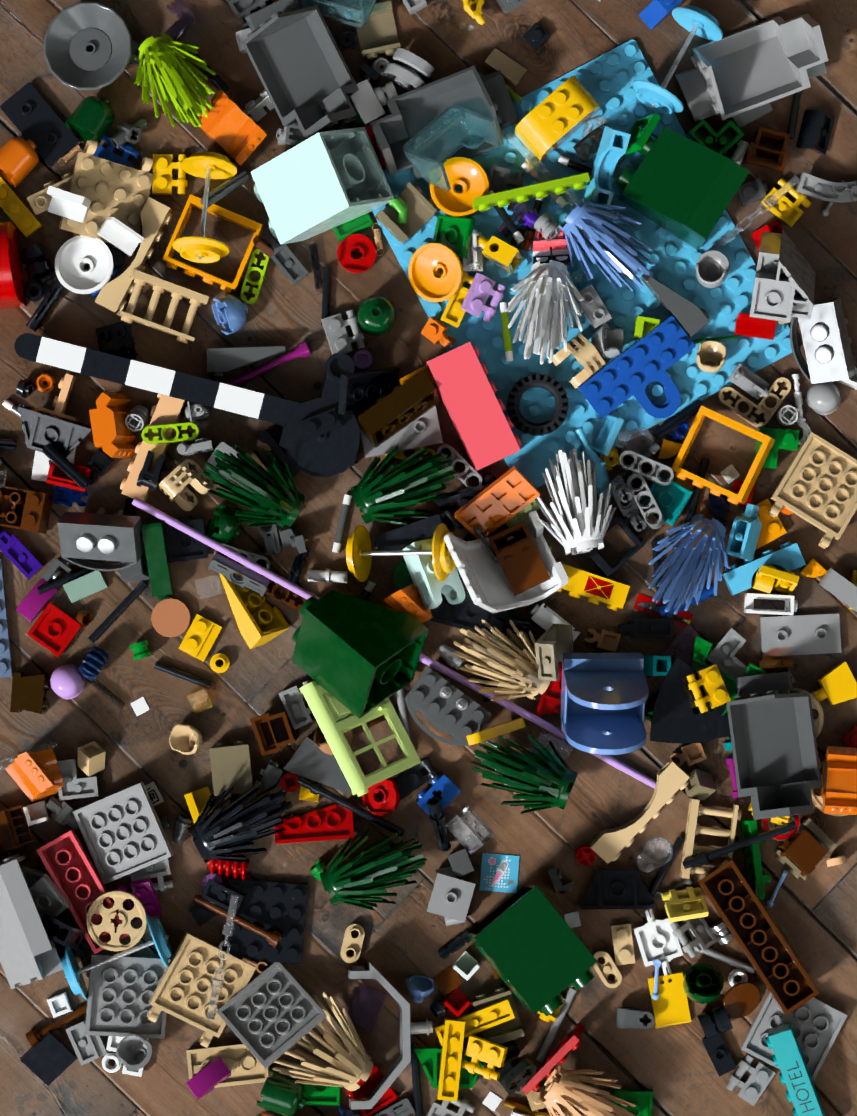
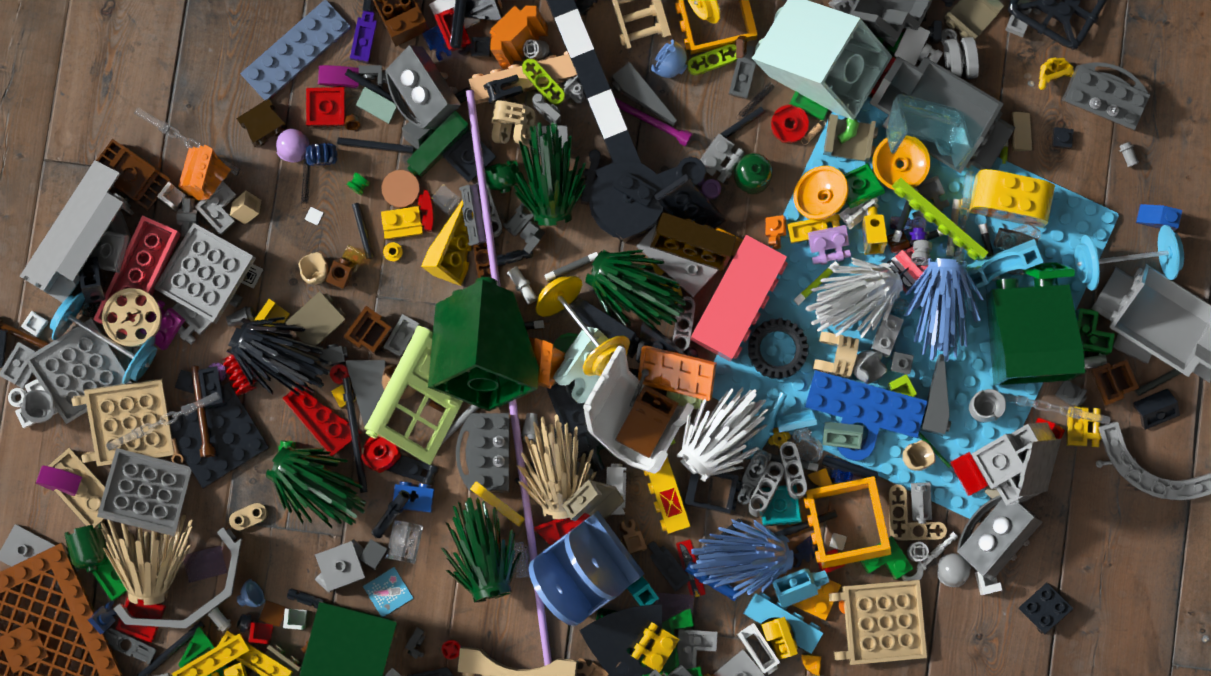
camera: 55 degrees right, 5 degrees down
(201, 606) = (426, 206): none -> red slope
(209, 726) = (336, 279): none -> reddish brown brick
(625, 312) = (901, 362): none -> dark grey bracket
(648, 405) = (843, 435): none -> sand green slope

